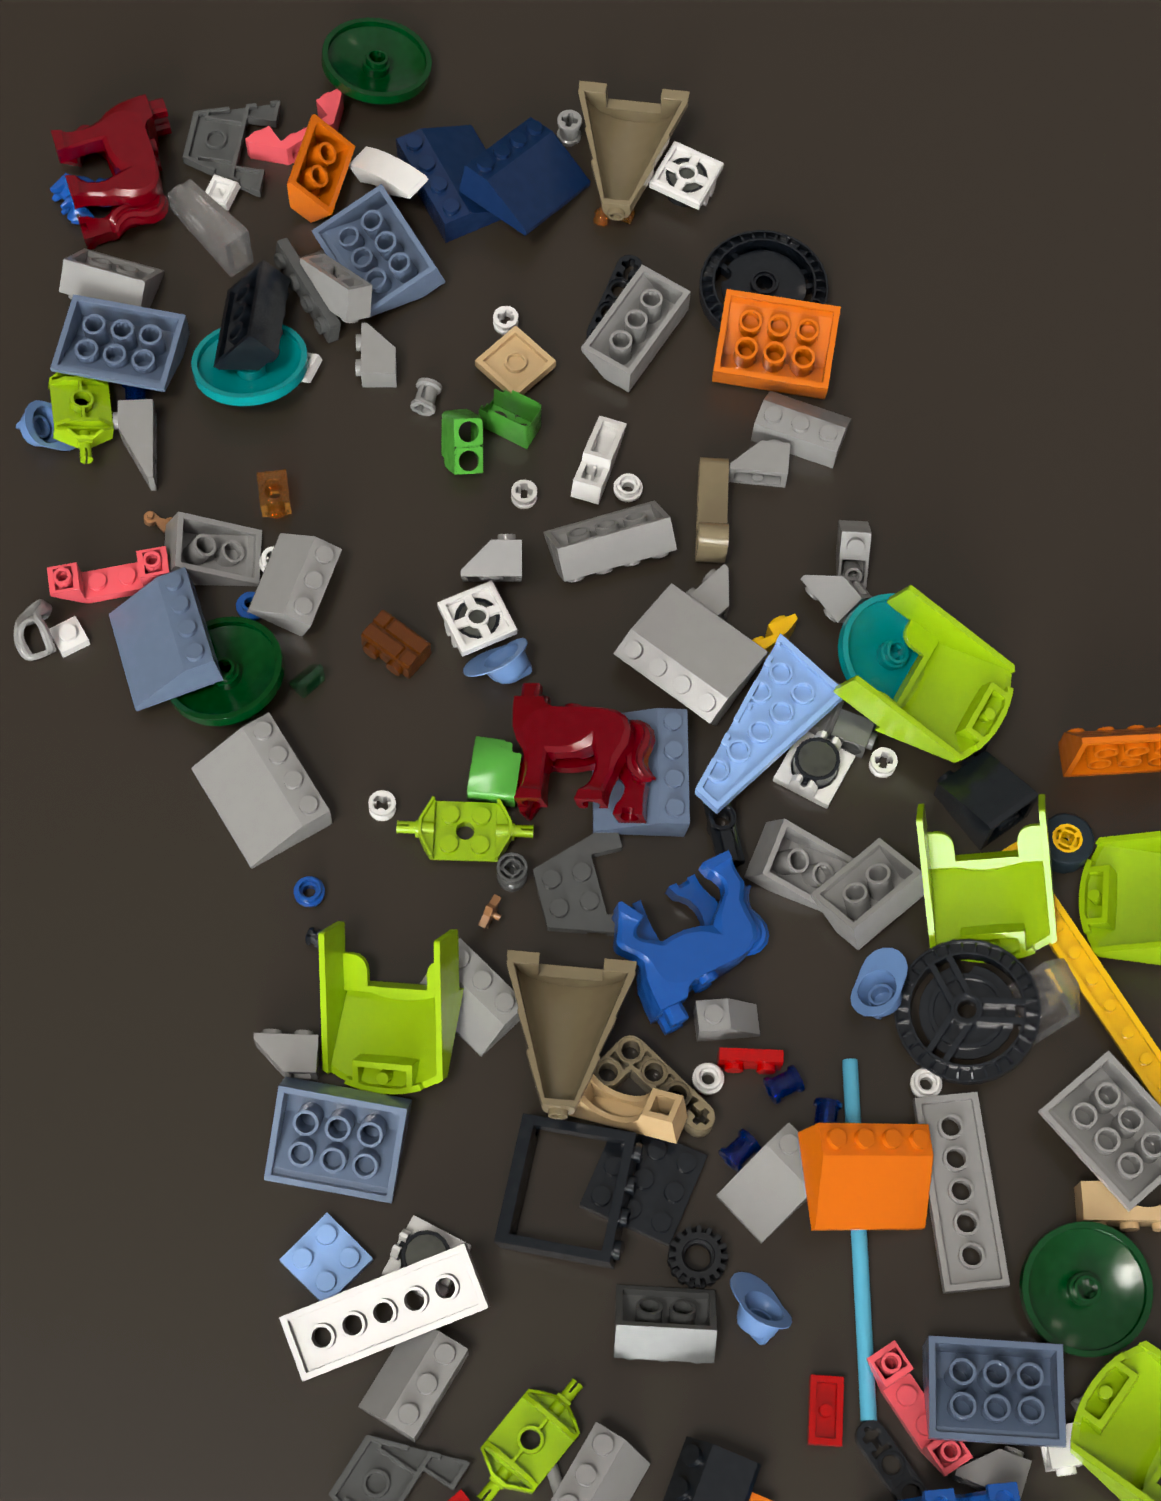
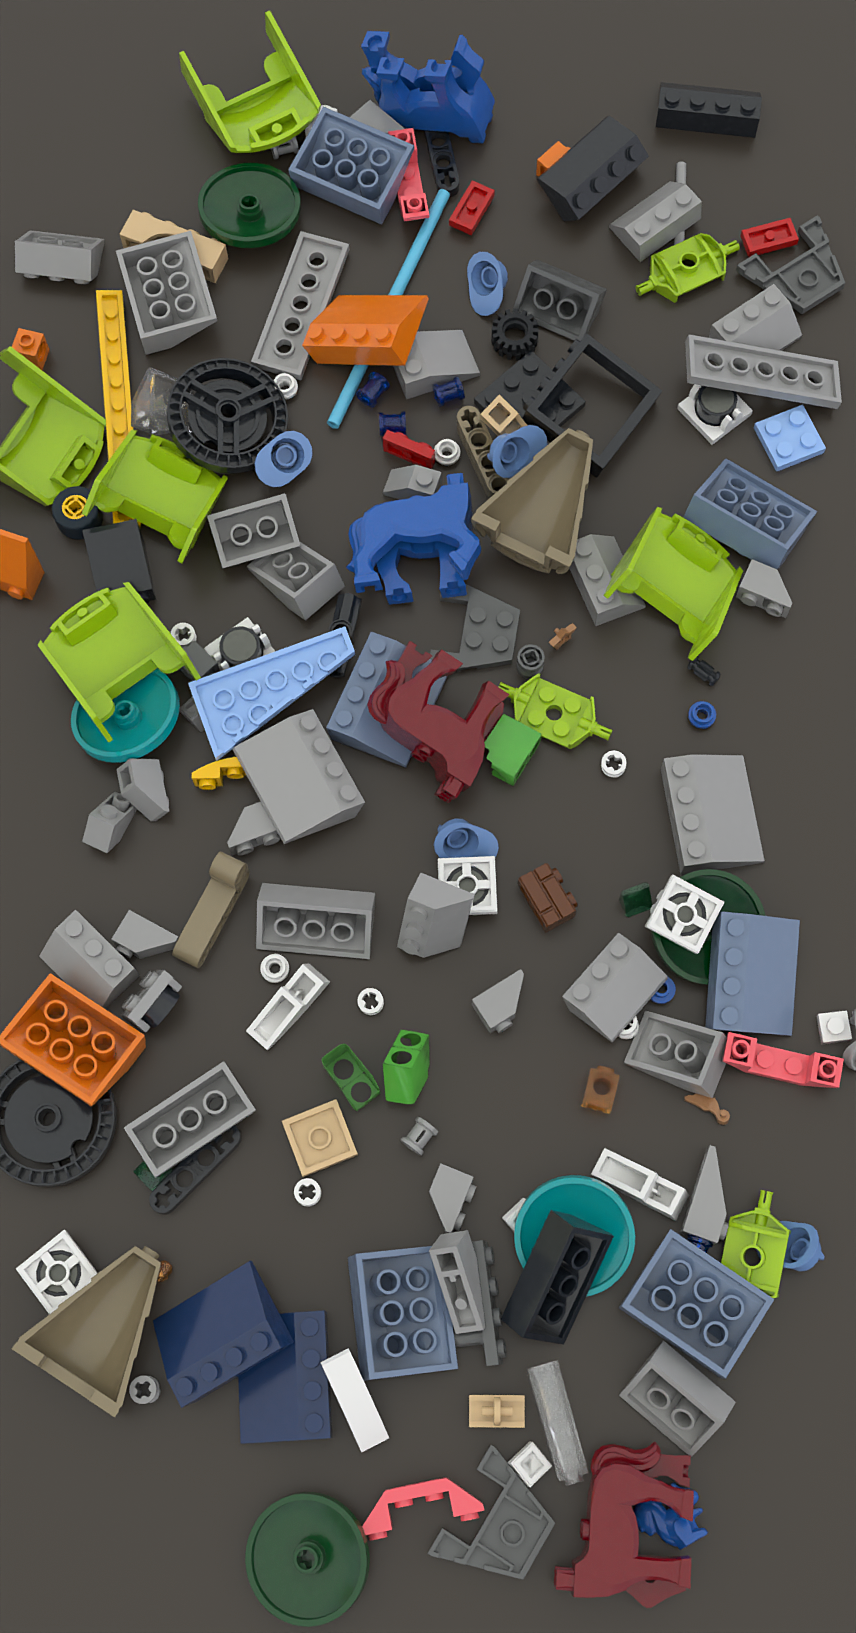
camera: 150 degrees left, 5 degrees up
(206, 431) = (640, 1184): none -> white slope
(248, 650) = (682, 914): none -> white piece
(264, 213) = (497, 1411): none -> tan hips
(319, 170) = (420, 1431): orange slope -> none
(401, 532) = (499, 1003): none -> light grey slope
(628, 1078) = (516, 450): none -> medium blue piece
(725, 408) = (152, 1001): none -> light grey piece

